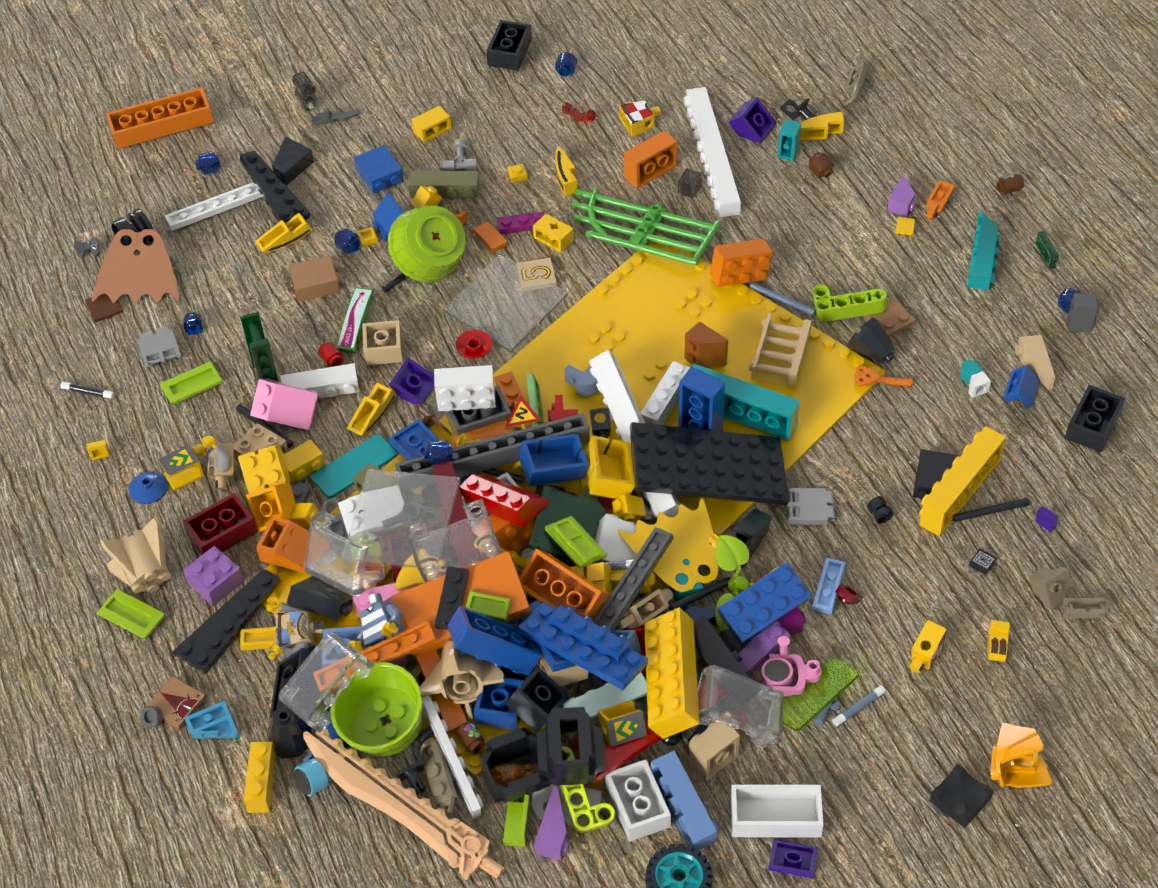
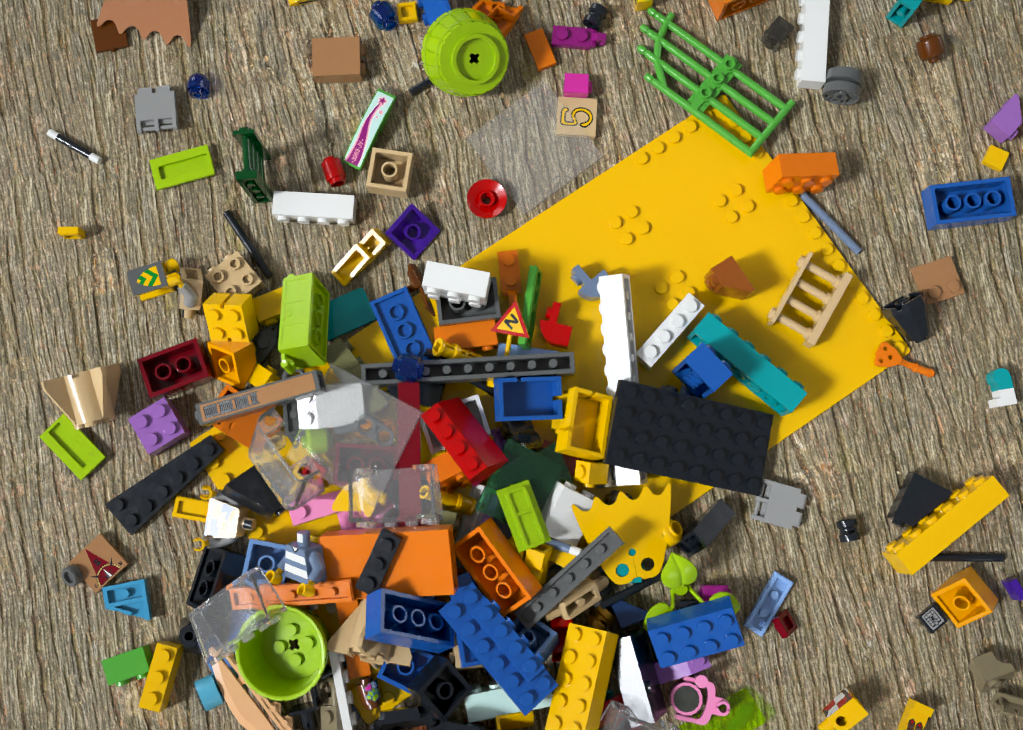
camera: 10 degrees right, 30 degrees up
(148, 487) = (121, 297): blue dish -> none
(224, 777) = (128, 665): none -> bright green brick
(284, 404) = (269, 229): bright pink slope -> none
(299, 513) = (260, 398): none -> brick
(333, 455) = (303, 322): none -> lime container
(489, 605) = (413, 582): lime tile -> none
(529, 250) = (577, 85): none -> dark pink brick
(531, 203) = (595, 16): none -> black wheel
(553, 233) = (610, 74): yellow brick -> none
(601, 429) = (590, 361): black bracket -> none
(756, 202) = (842, 85): none -> dark grey wheel
(847, 305) = (901, 254): lime beam -> none
(892, 256) = (968, 203): none -> blue brick
(1004, 536) = (965, 597): none -> light orange slope

